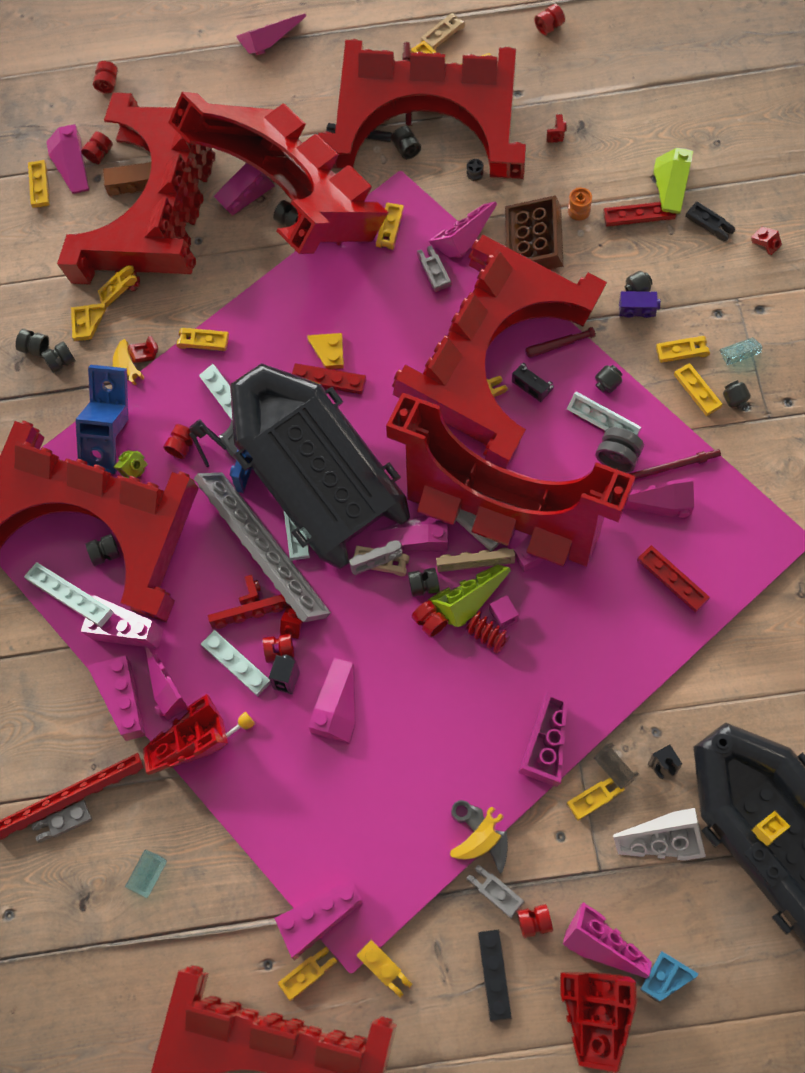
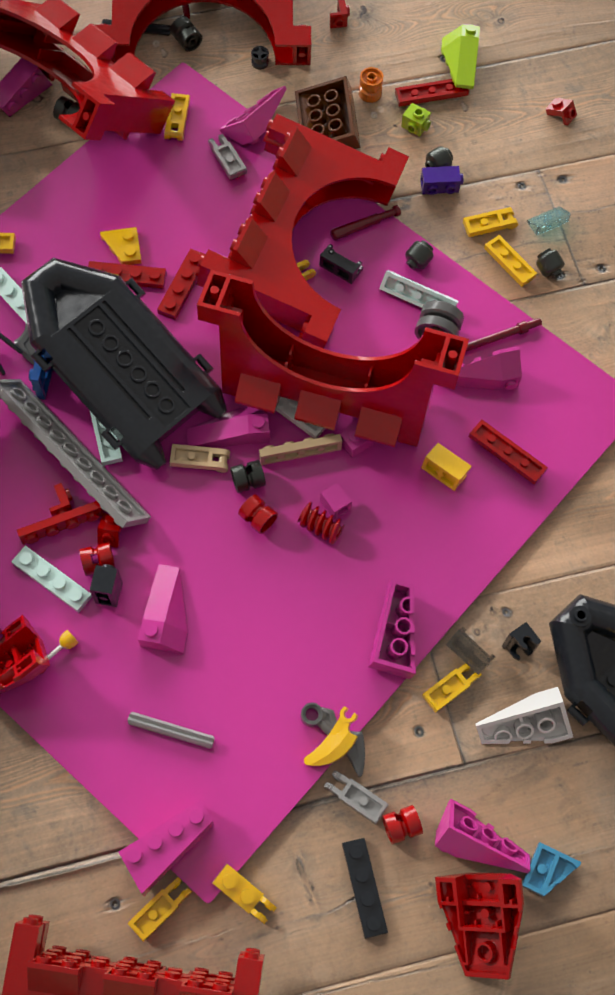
camera: 15 degrees left, 0 degrees up
(331, 812) = (171, 730): none -> light grey axle
(376, 557) = (194, 454): light grey hinge -> none
(378, 393) = (180, 286): none -> red plate
(465, 600) = (295, 491): lime wedge -> none
(612, 588) = (446, 466): none -> yellow hinge
(620, 242) = (416, 119): none -> lime brick
(710, 221) = (503, 95): black hinge -> none

